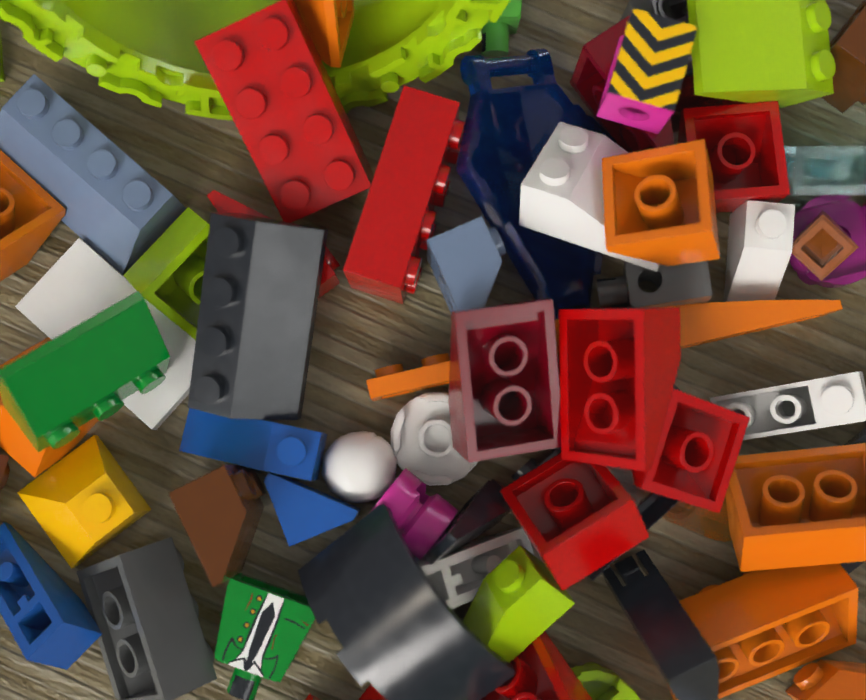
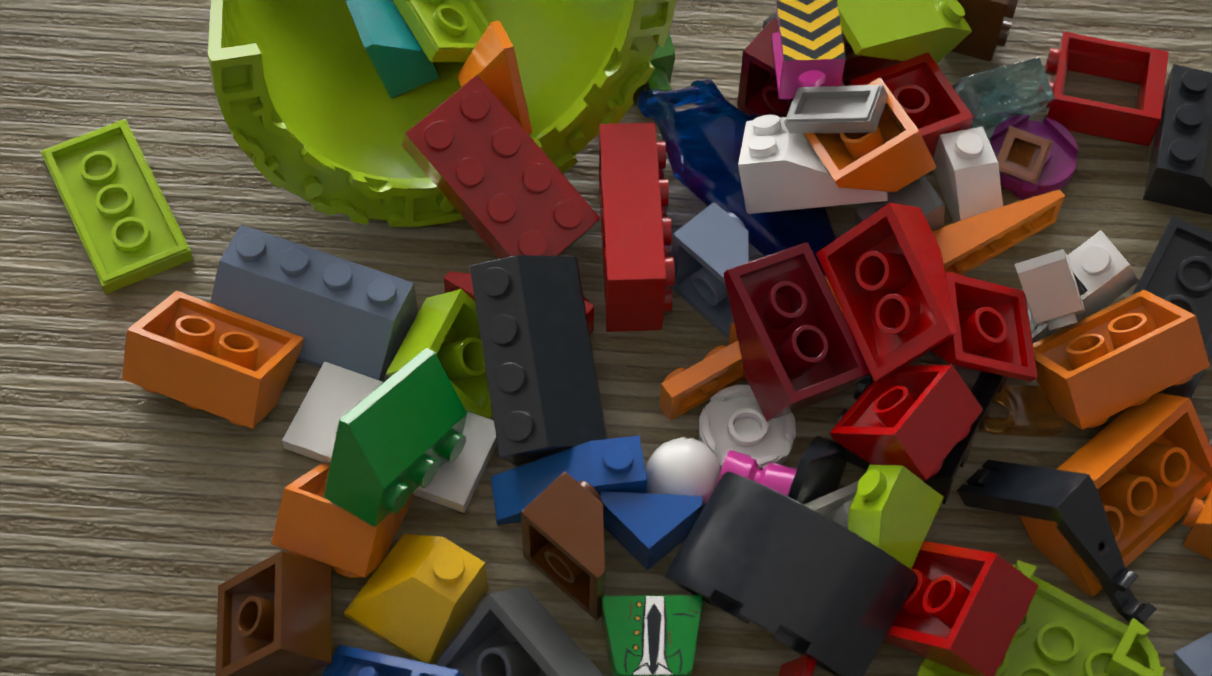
camera: 20 degrees left, 25 degrees down
(644, 160) = (836, 109): none -> light grey tile
(777, 421) = (1051, 290): none -> white slope

